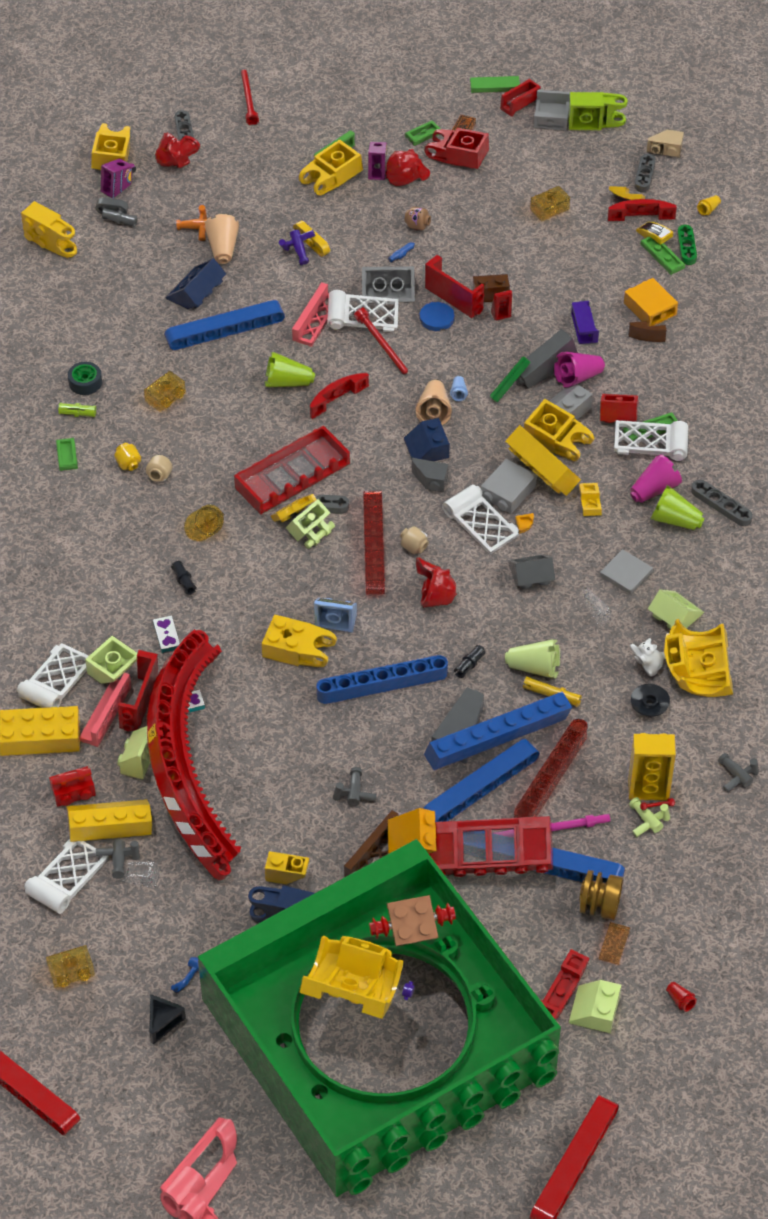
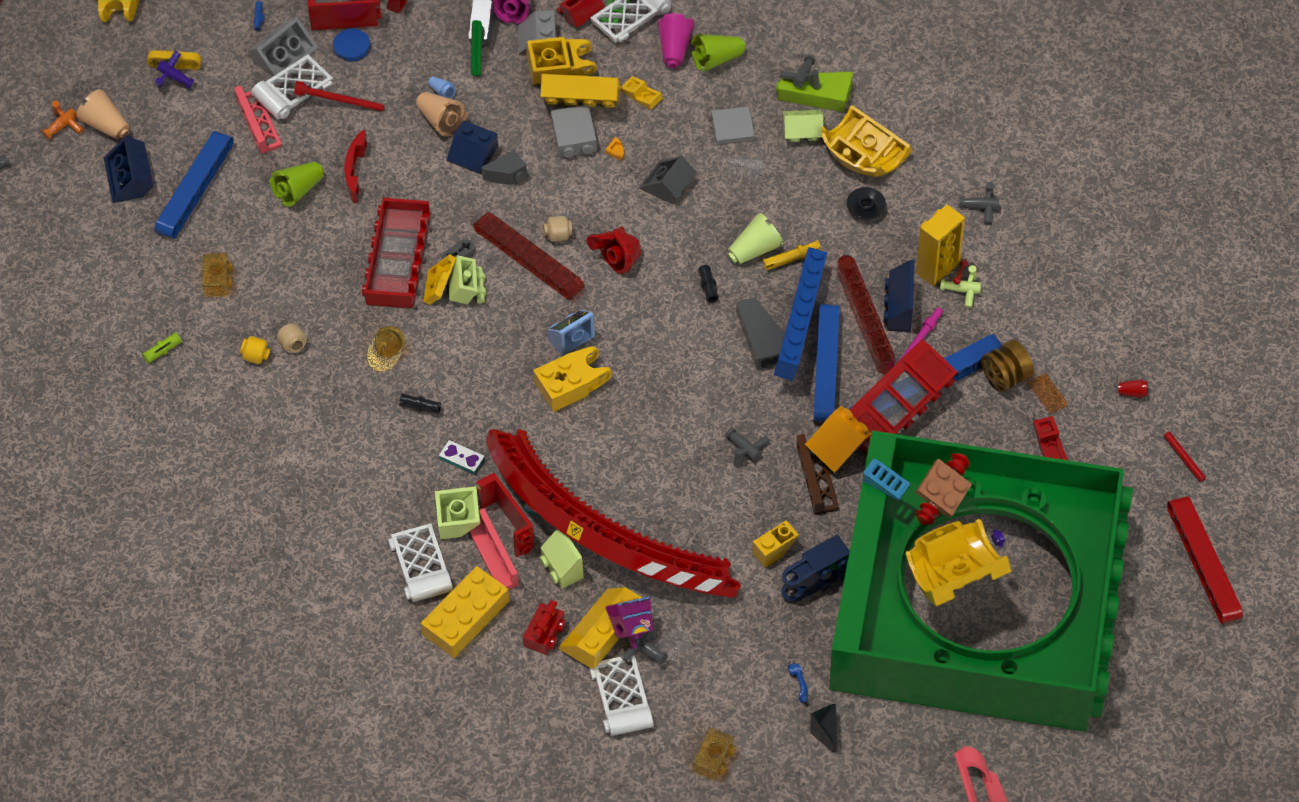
camera: 45 degrees left, 5 degrees up
(66, 454) = (199, 389): bright green tile -> none
(84, 378) = (141, 312): black wheel -> none
(122, 826) = (631, 619): none -> magenta torso
(378, 864) = (882, 470): none -> dark azure slope
(382, 679) = (690, 311): blue beam -> none
(469, 500) = (557, 173): white piece -> none
(588, 784) = (899, 297): none -> dark blue slope
(596, 1005) = (1091, 442): yellowish green slope -> none
(648, 656) = (830, 172): white animal -> none
(658, 1078) = (1184, 456): none -> red bar
(712, 573) = (803, 74): none -> dark grey piece
(717, 596) = (831, 95): none -> lime slope
(723, 501) = (735, 16): dark grey beam -> none

